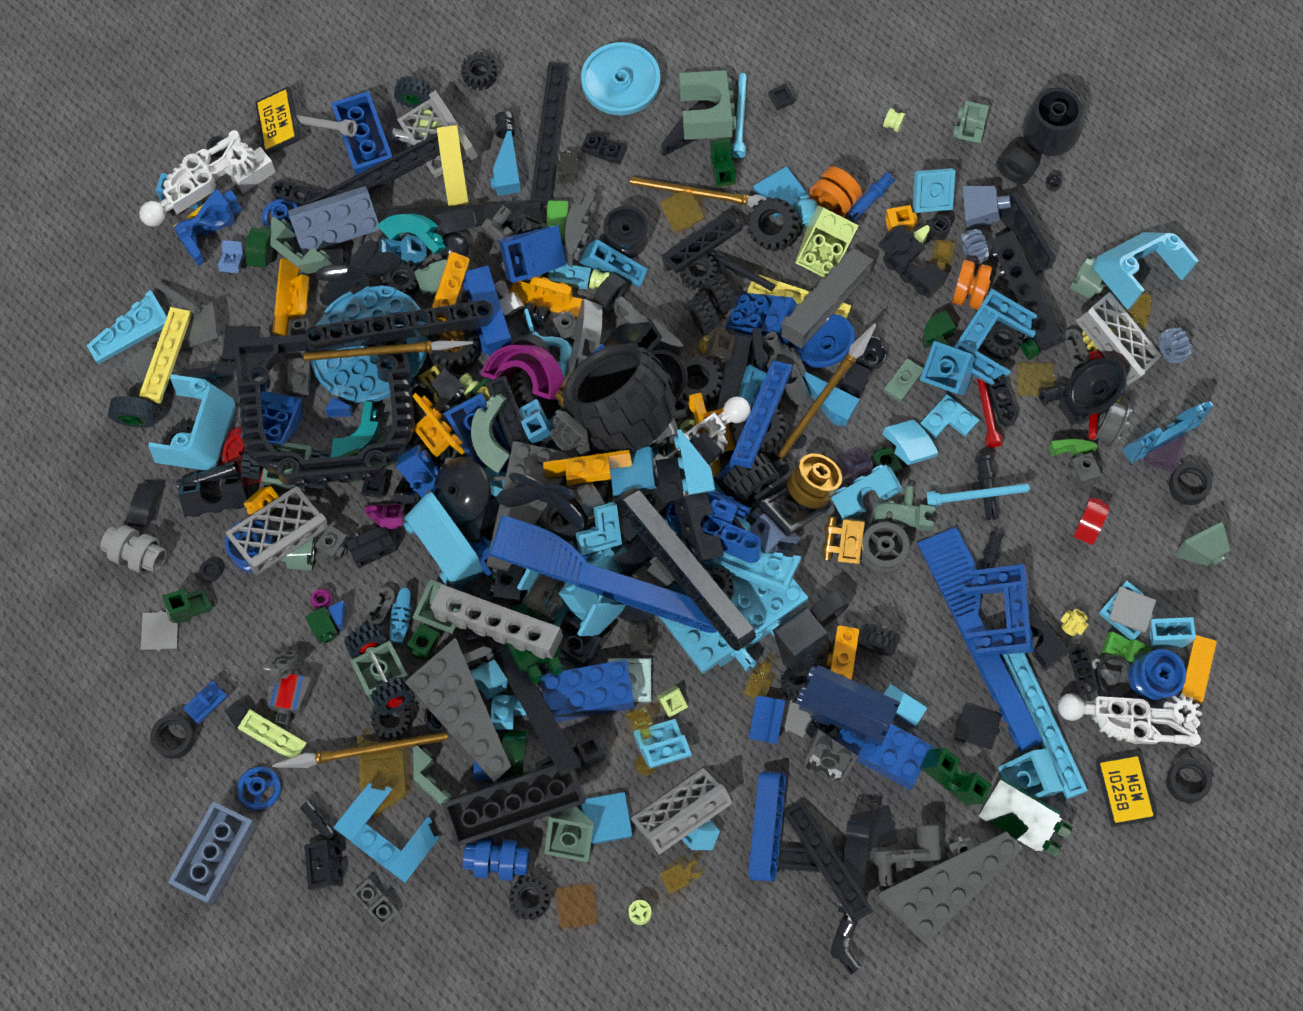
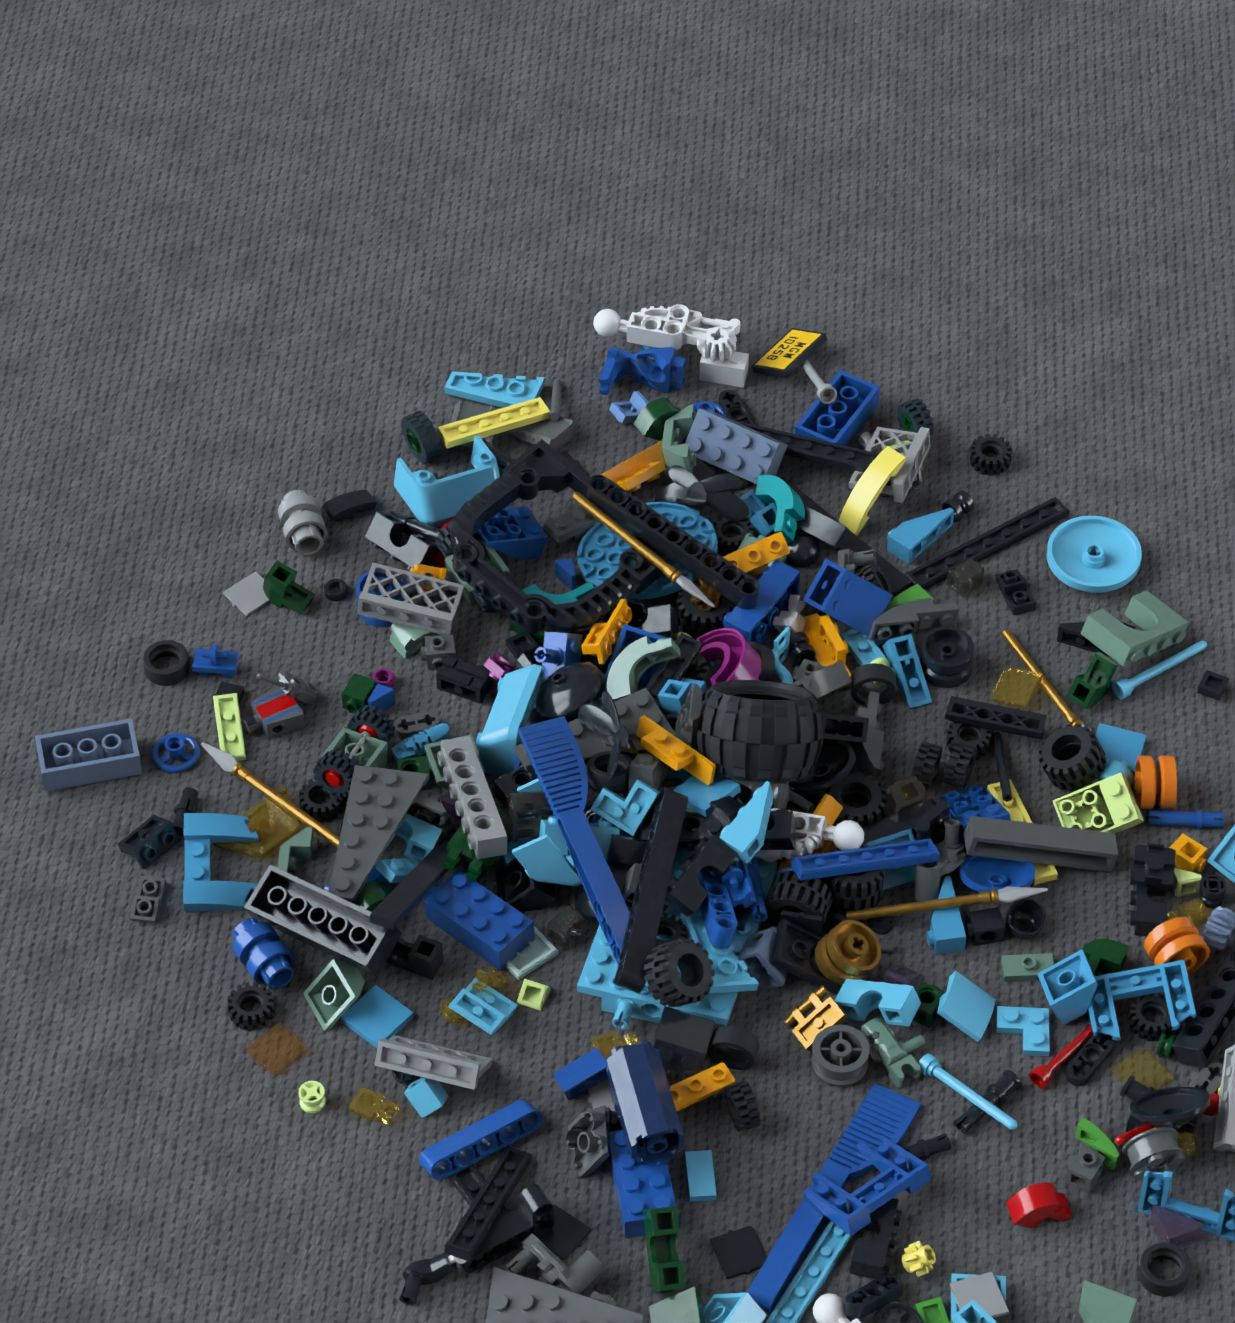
camera: 50 degrees right, 20 degrees down
(764, 603) = (694, 969): none -> black tyre

